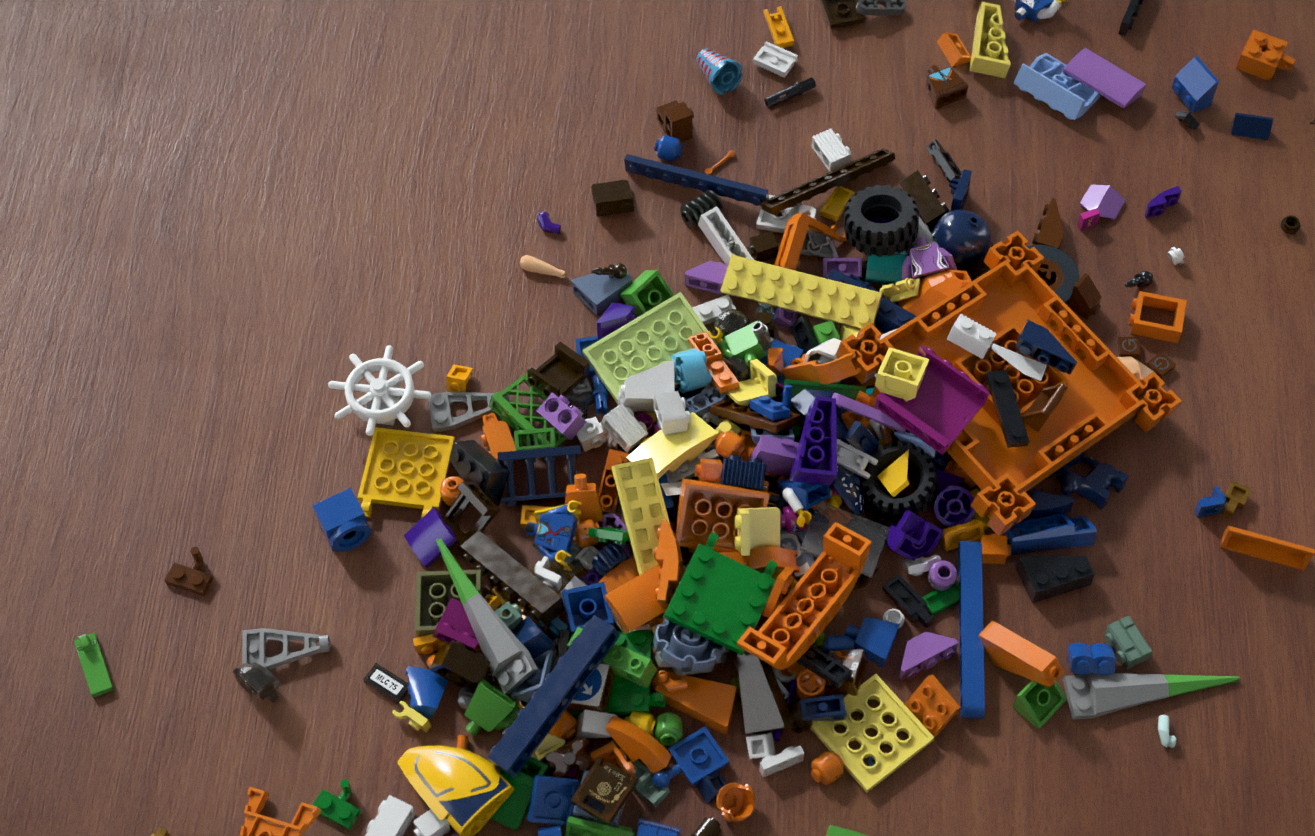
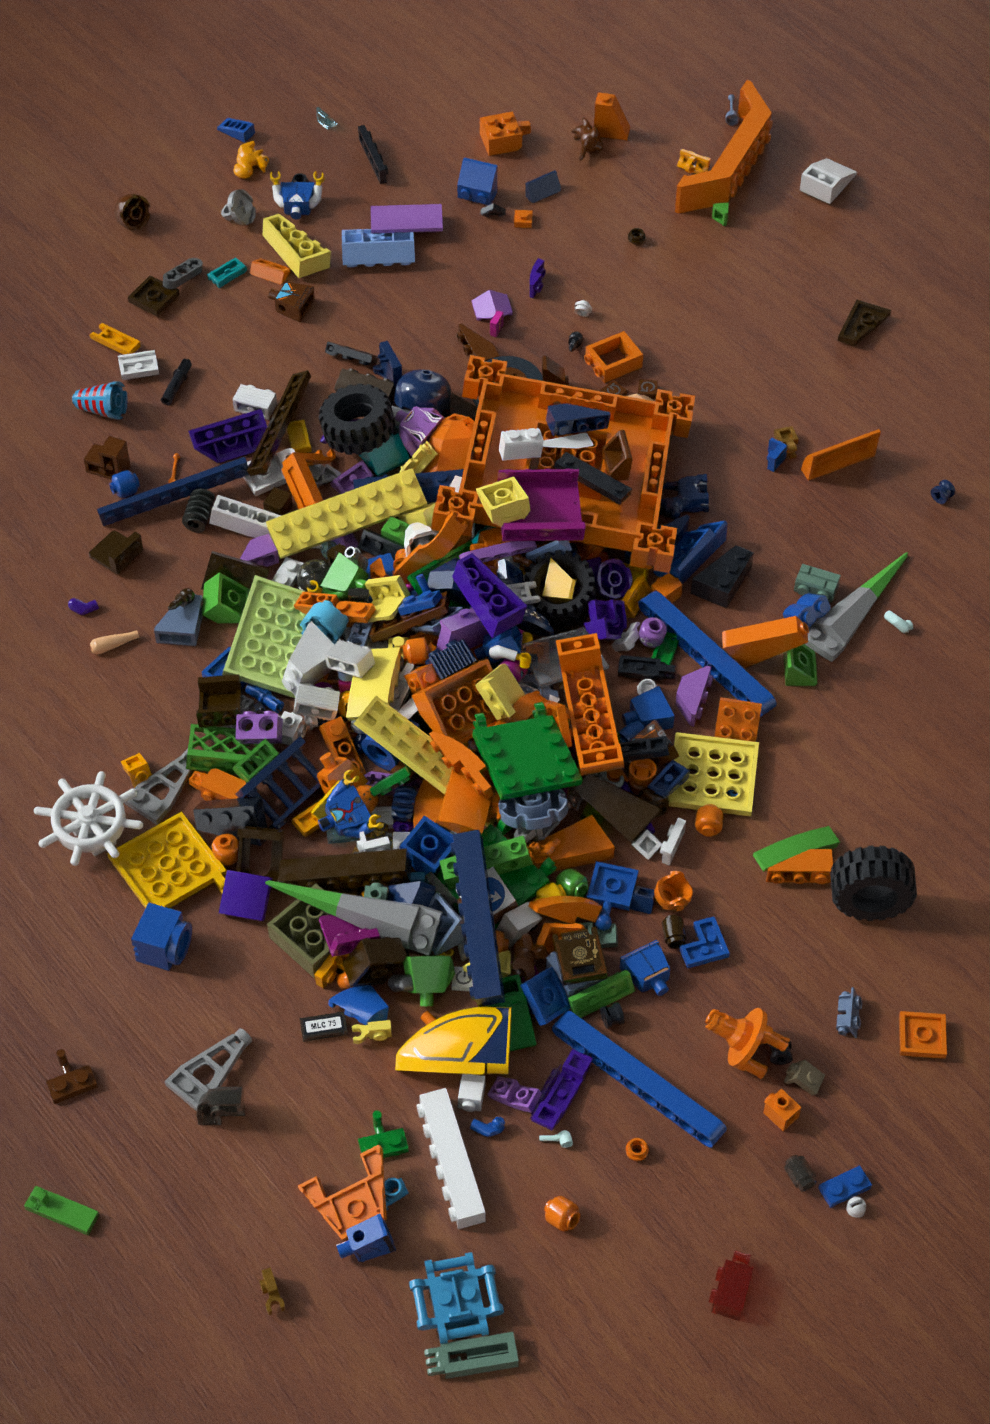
camera: 45 degrees left, 5 degrees down
(614, 318) = (222, 633): dark purple slope -> none
(676, 276) = (234, 568): none -> dark brown wing
(779, 166) = (230, 437): none -> dark purple wedge
(919, 29) = (228, 274): none -> teal tile
(1207, 143) = (523, 218): none -> orange plate

